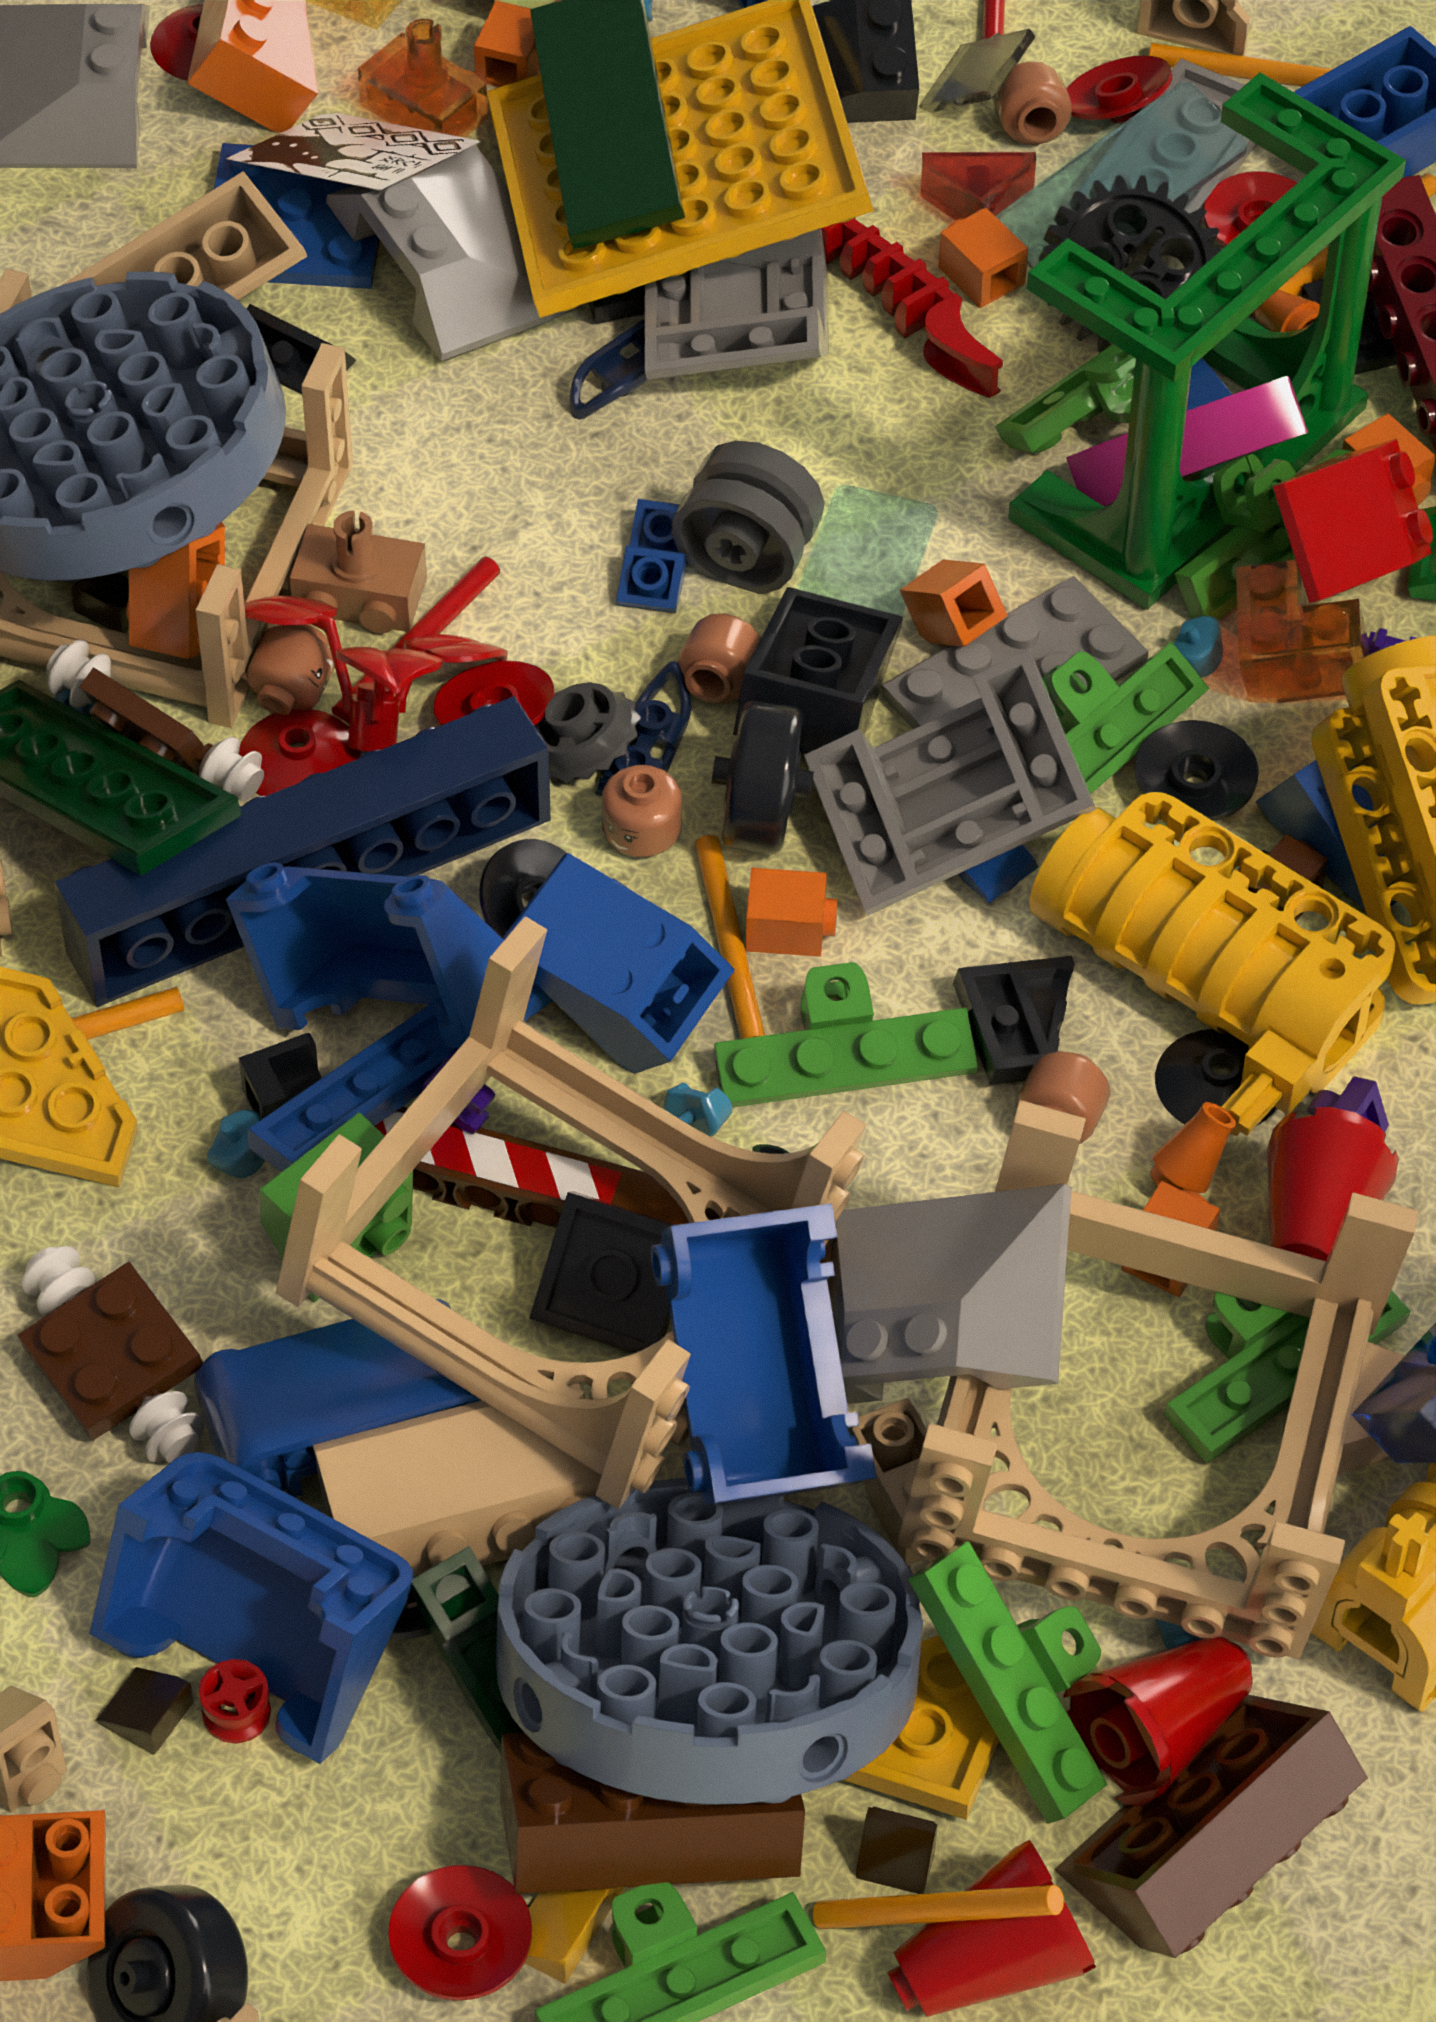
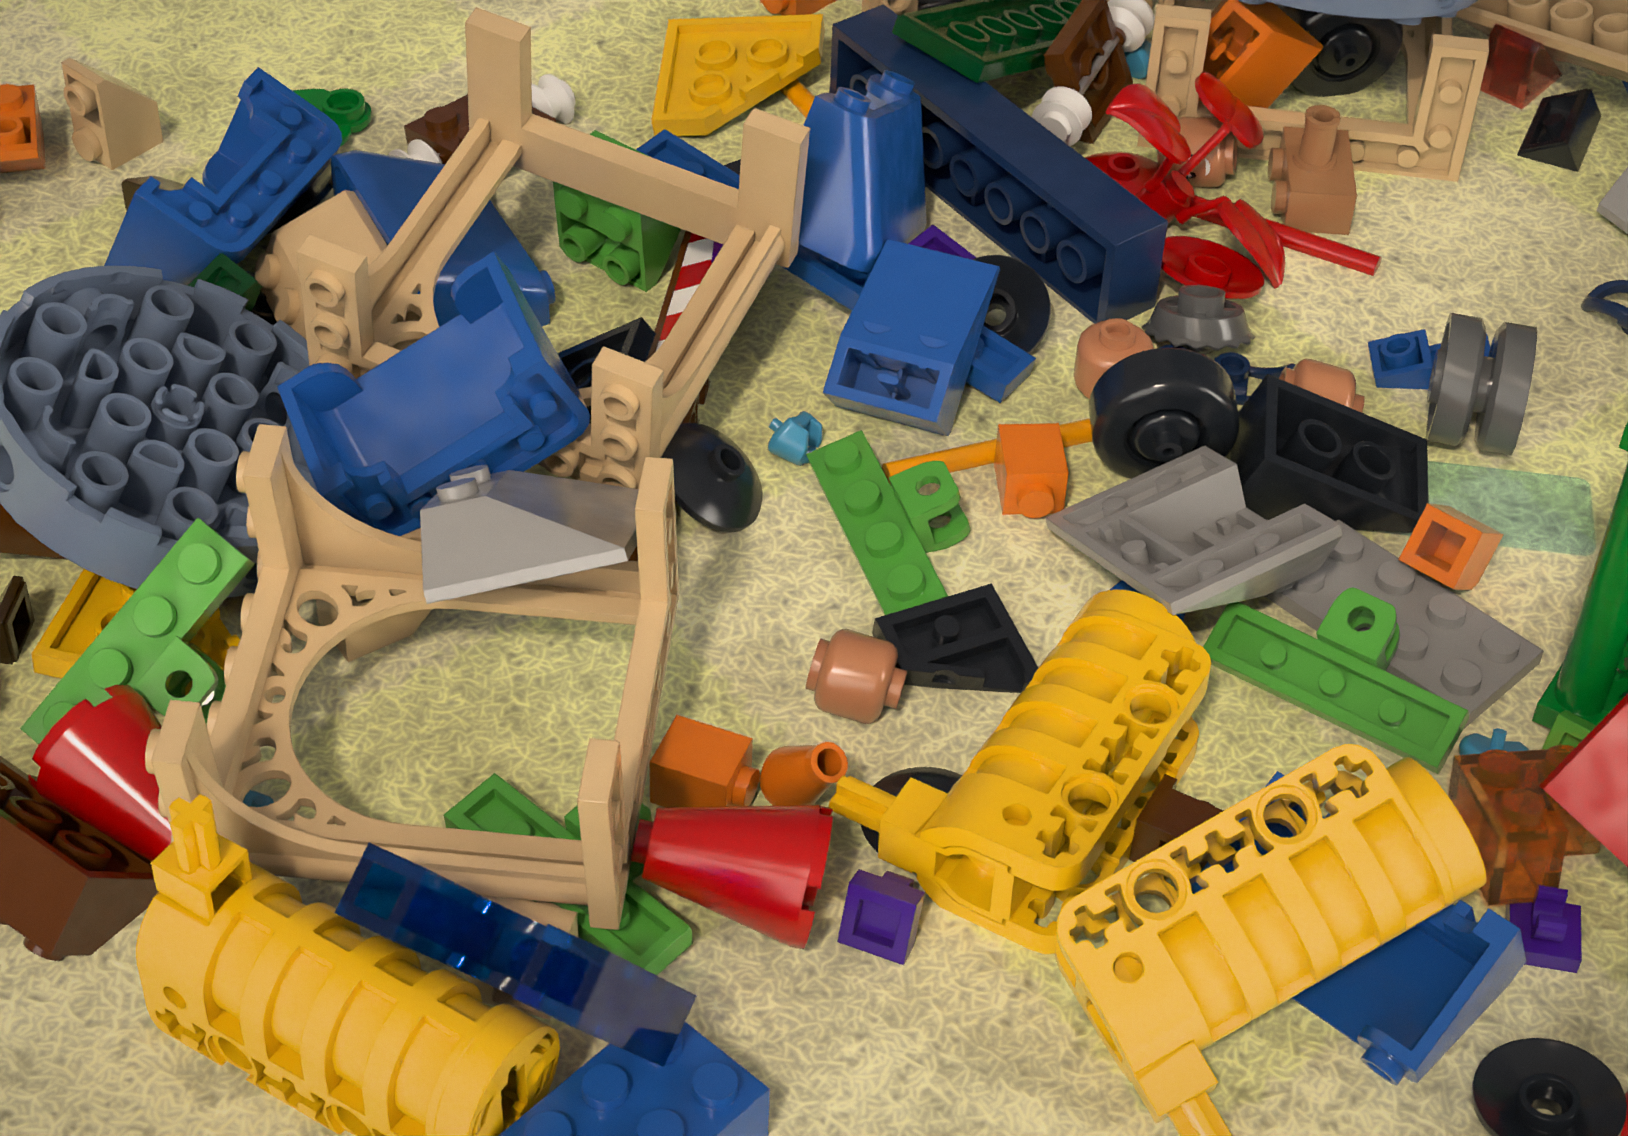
camera: 80 degrees right, 10 degrees down
(1201, 752) = (1299, 735): black dish -> none

